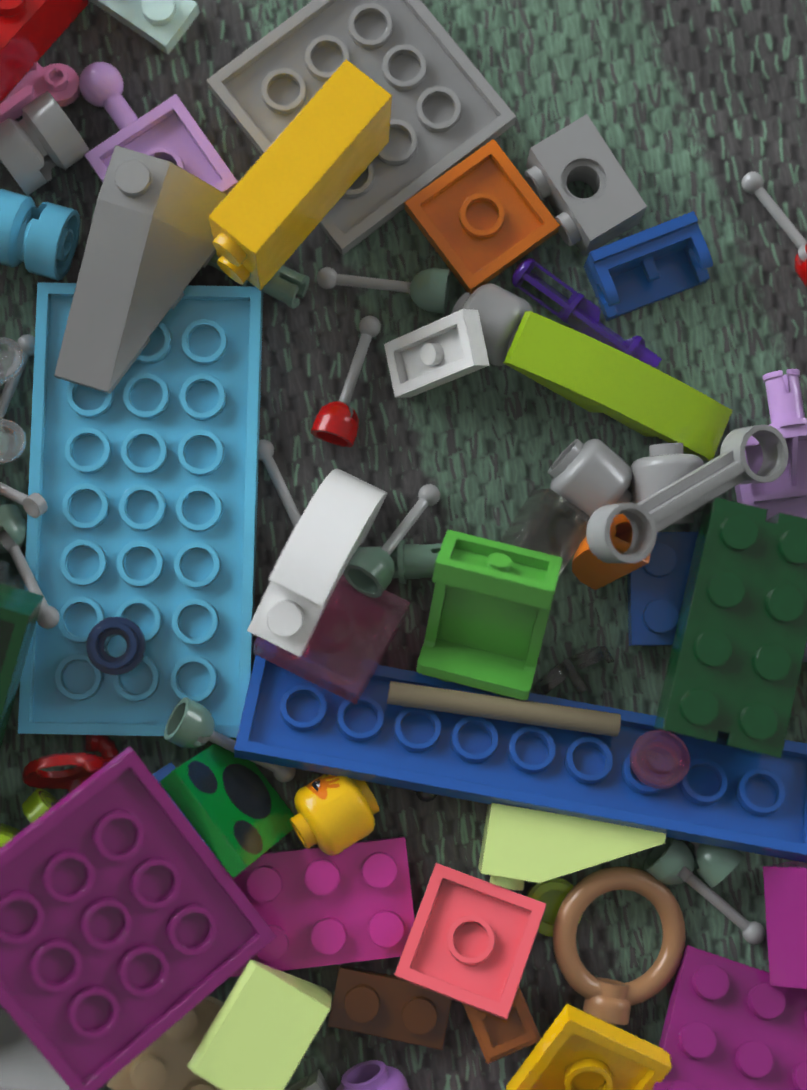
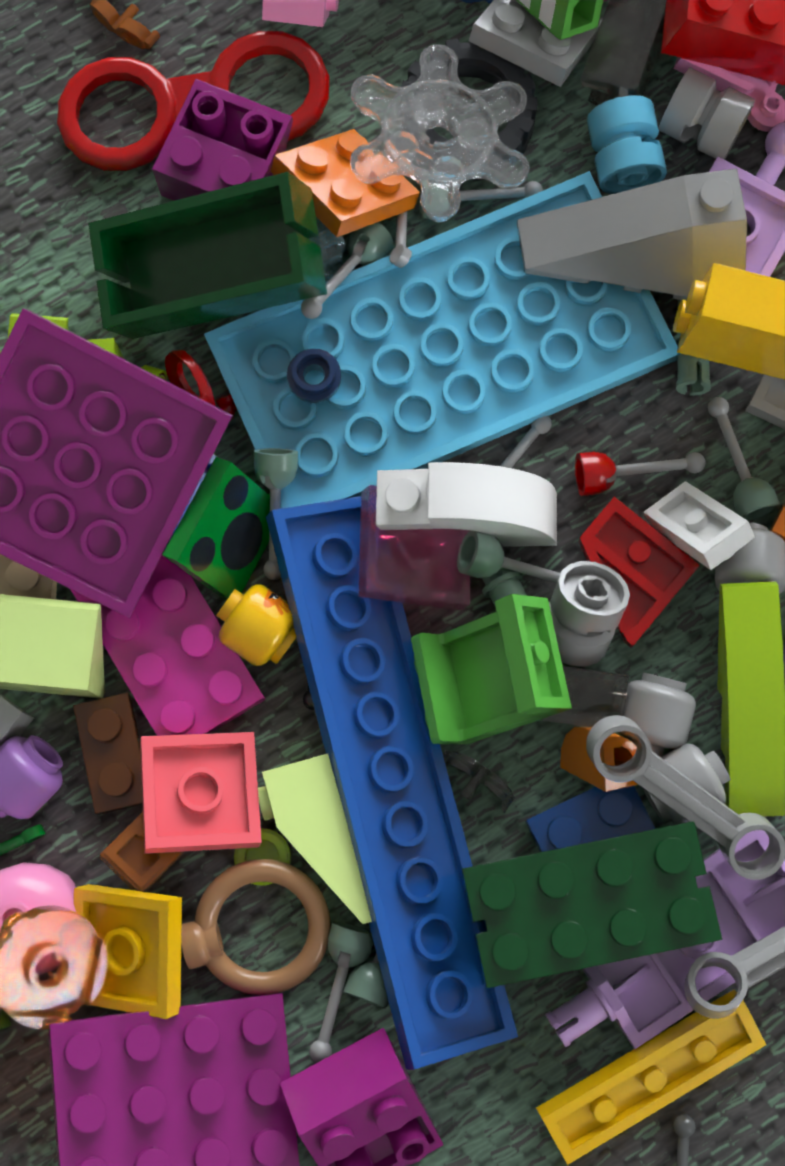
camera: 70 degrees right, 5 degrees down
(445, 432) = (644, 560): none -> red wing
(469, 496) = (587, 611): none -> light grey wheel
(504, 708) = (415, 728): dark tan bar -> none
(660, 759) = (435, 884): clear pink plate -> none

